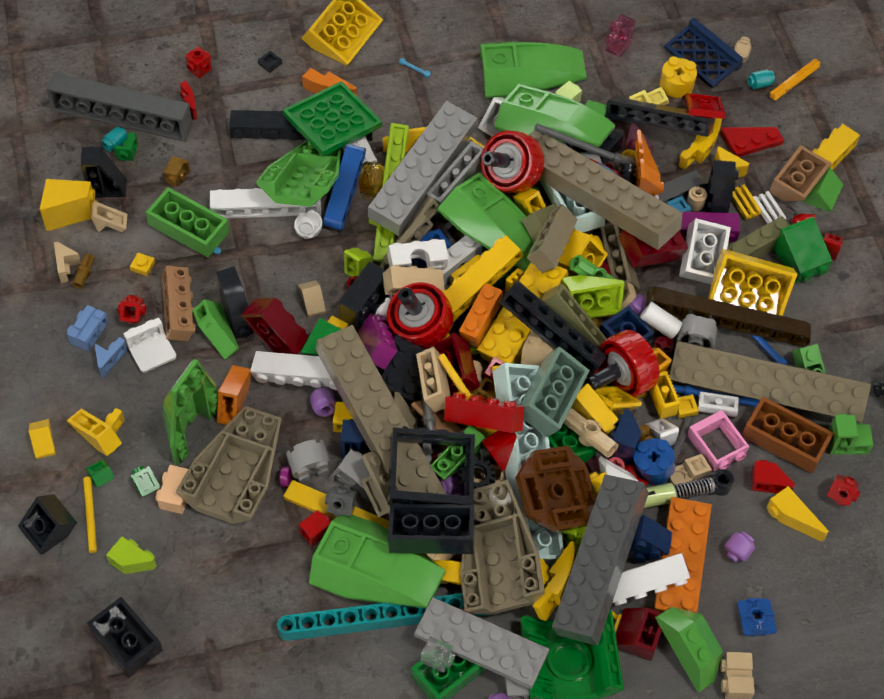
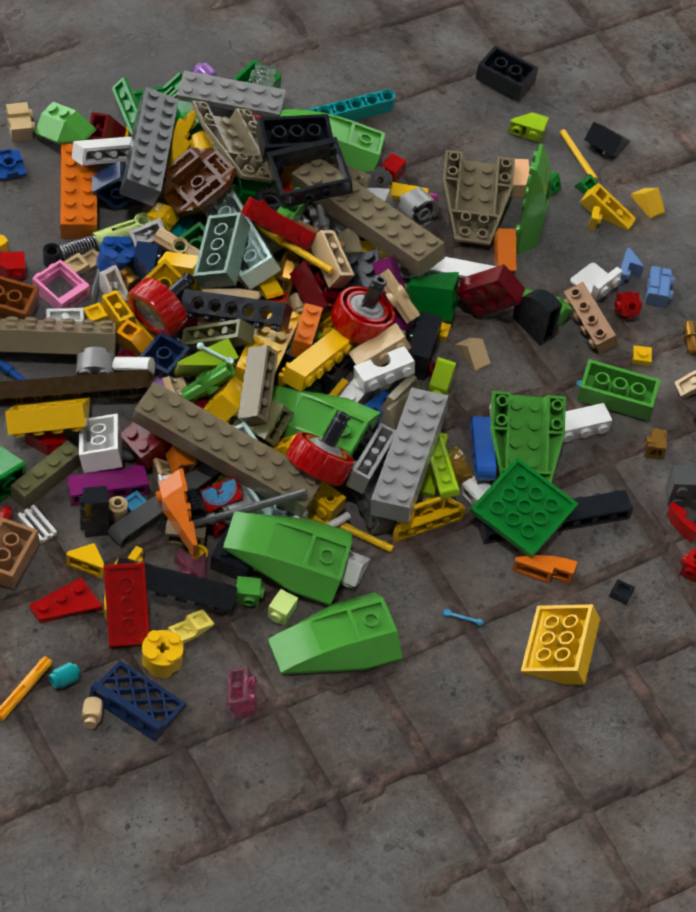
camera: 160 degrees right, 5 degrees down
(381, 317) = (399, 297): none -> tan piece
(572, 274) = (200, 346): none -> light aqua hinge
(739, 546) = (29, 209): medium lavender head -> none
(748, 201) = (56, 516): yellow tile -> none

